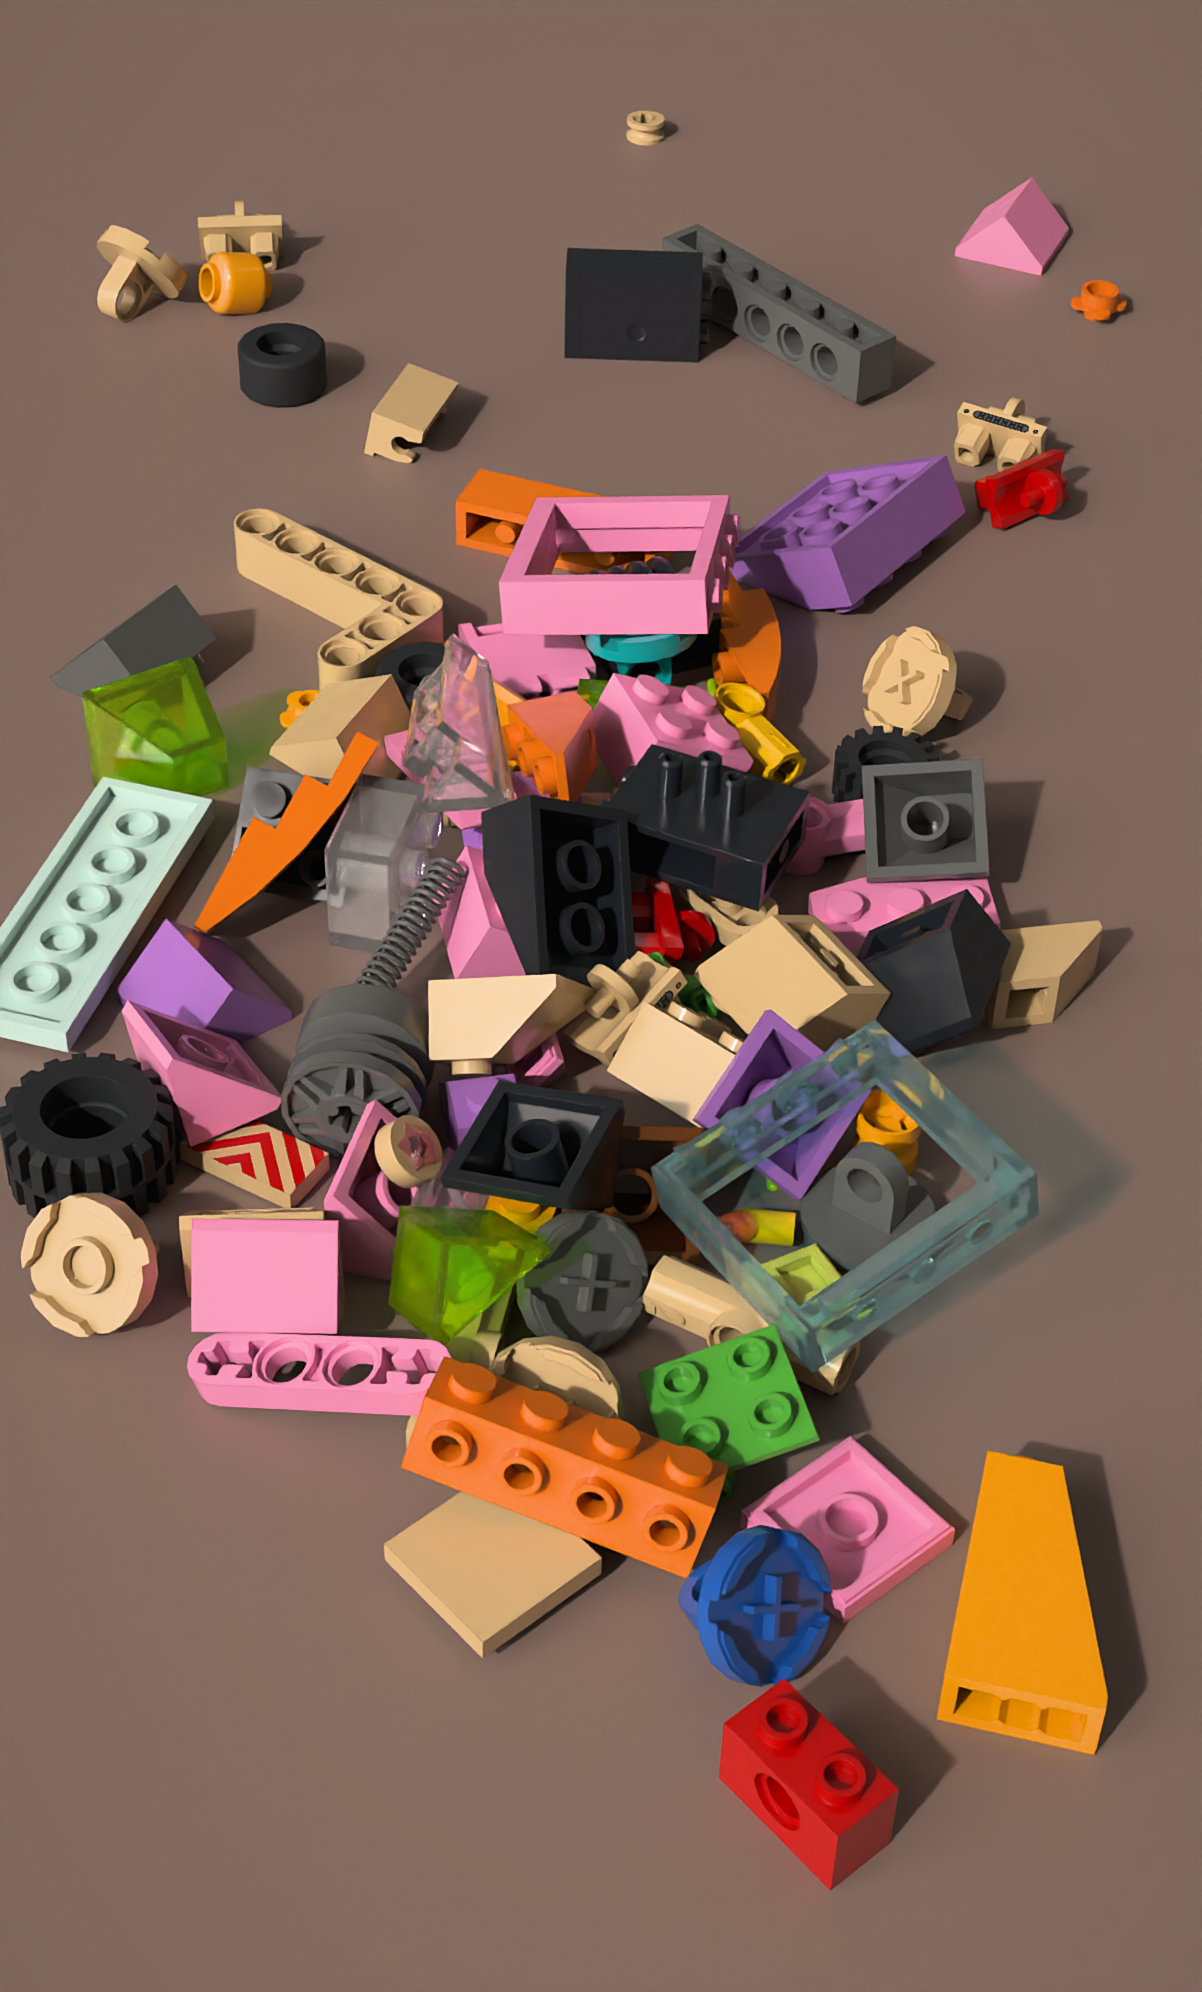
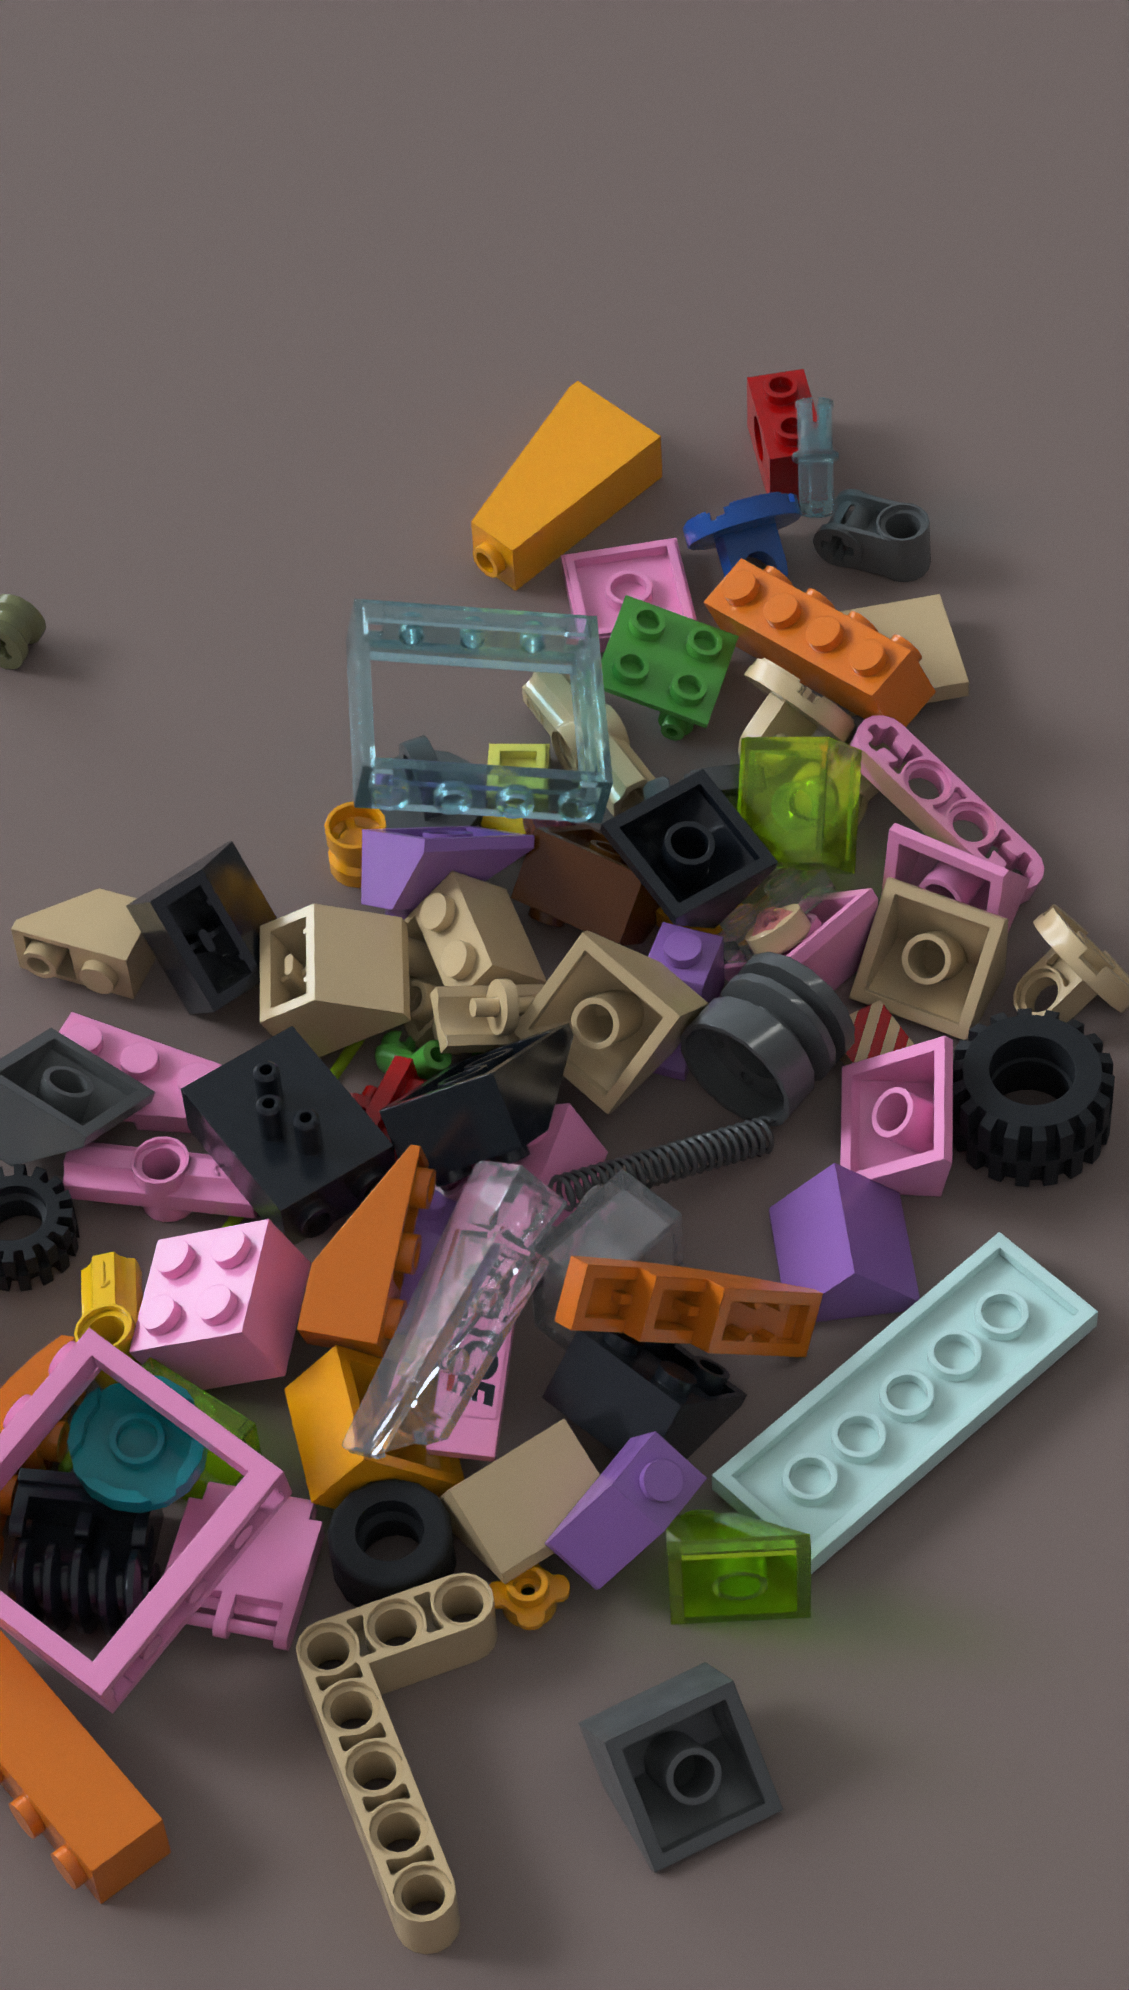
camera: 145 degrees left, 10 degrees up
(250, 724) = (625, 1508): none -> medium lavender slope
(613, 1703) = (879, 535): none -> dark grey piece
(727, 1686) = (815, 458): none -> clear light blue axle

